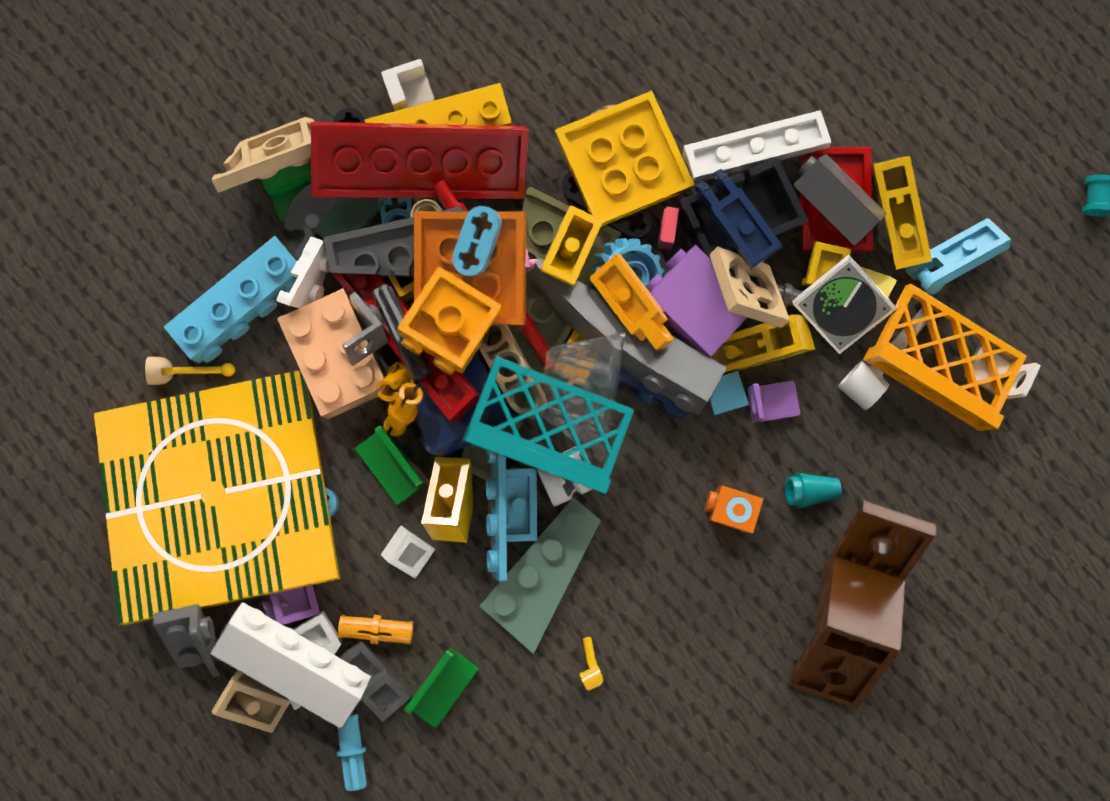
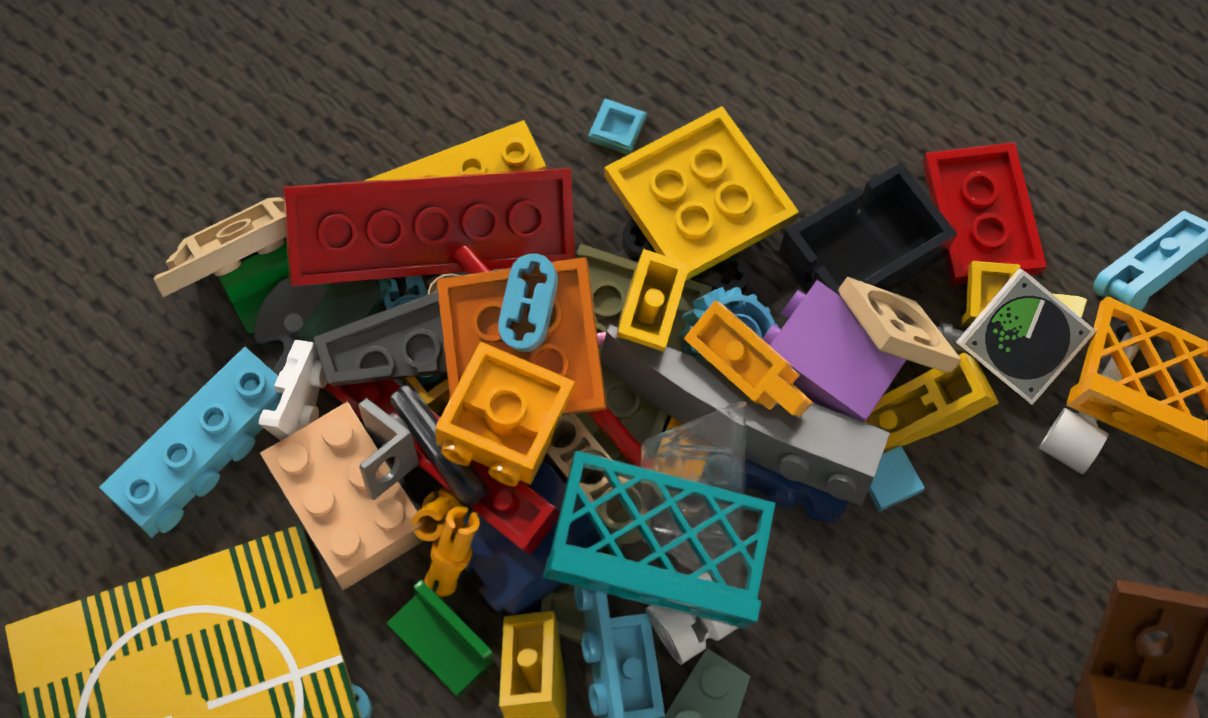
camera: 10 degrees left, 15 degrees down
(160, 370) = (98, 552): hinge -> none
(408, 85) = (399, 139): white panel -> none
(572, 92) = (617, 126): none -> medium azure tile
(668, 228) = (773, 274): coral tile -> none
(733, 508) = (933, 631): orange brick -> none
(739, 220) = (868, 241): dark blue hinge -> none
(756, 145) = (868, 154): white fence -> none
(773, 401) = (955, 479): medium lavender bracket -> none
(810, 489) = (1033, 591): teal cone -> none
(838, 198) = (990, 203): dark grey brick -> none
(904, 216) = (1072, 212): yellow slope -> none

